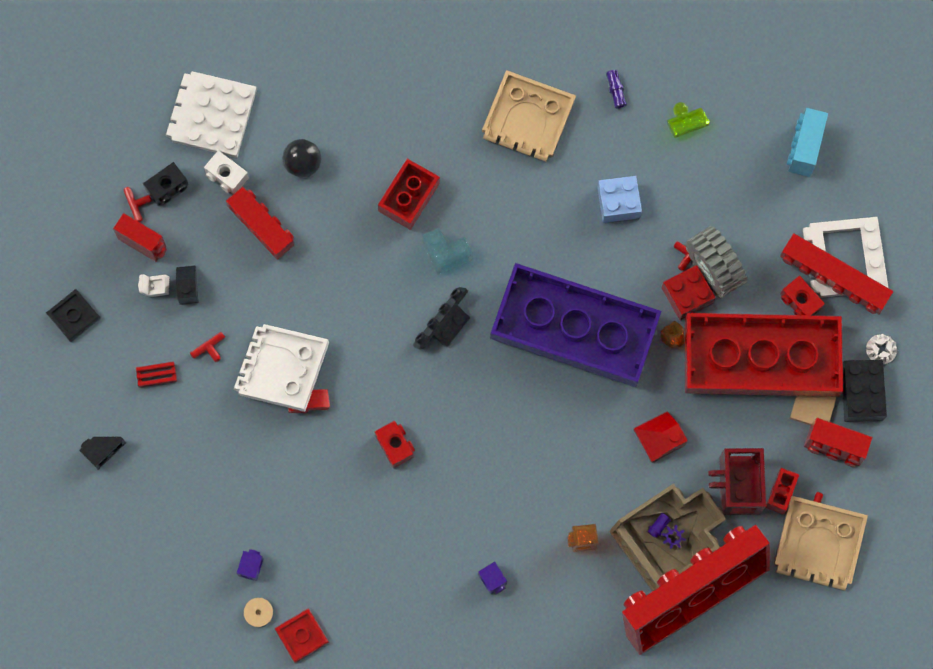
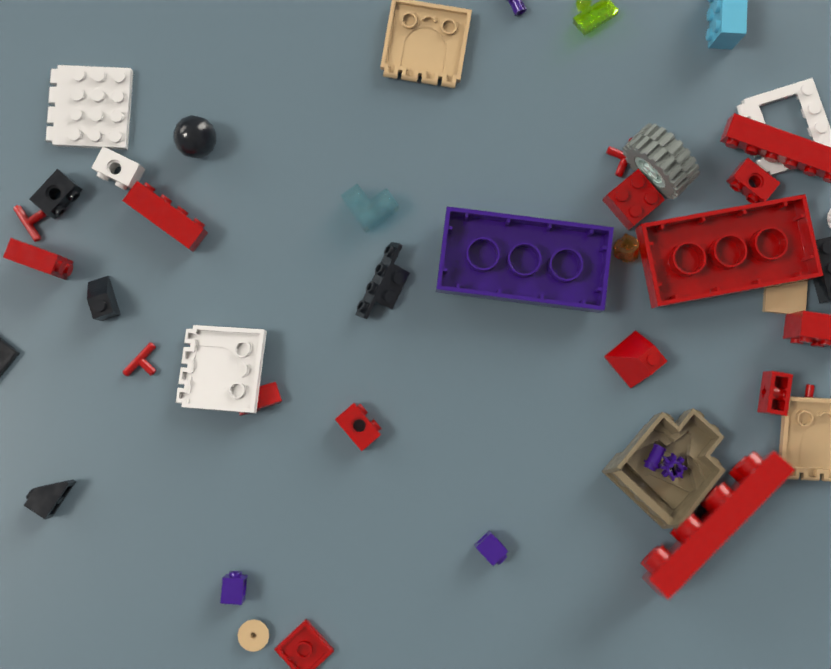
camera: 15 degrees left, 10 degrees up
(153, 285) = (66, 307): white bracket -> none
(154, 374) = (74, 408): red tile -> none
(408, 194) = (317, 152): red brick -> none
(583, 538) = (579, 488): clear orange brick -> none
(619, 199) = (540, 113): light blue brick -> none
(741, 481) = (729, 396): dark red piece -> none

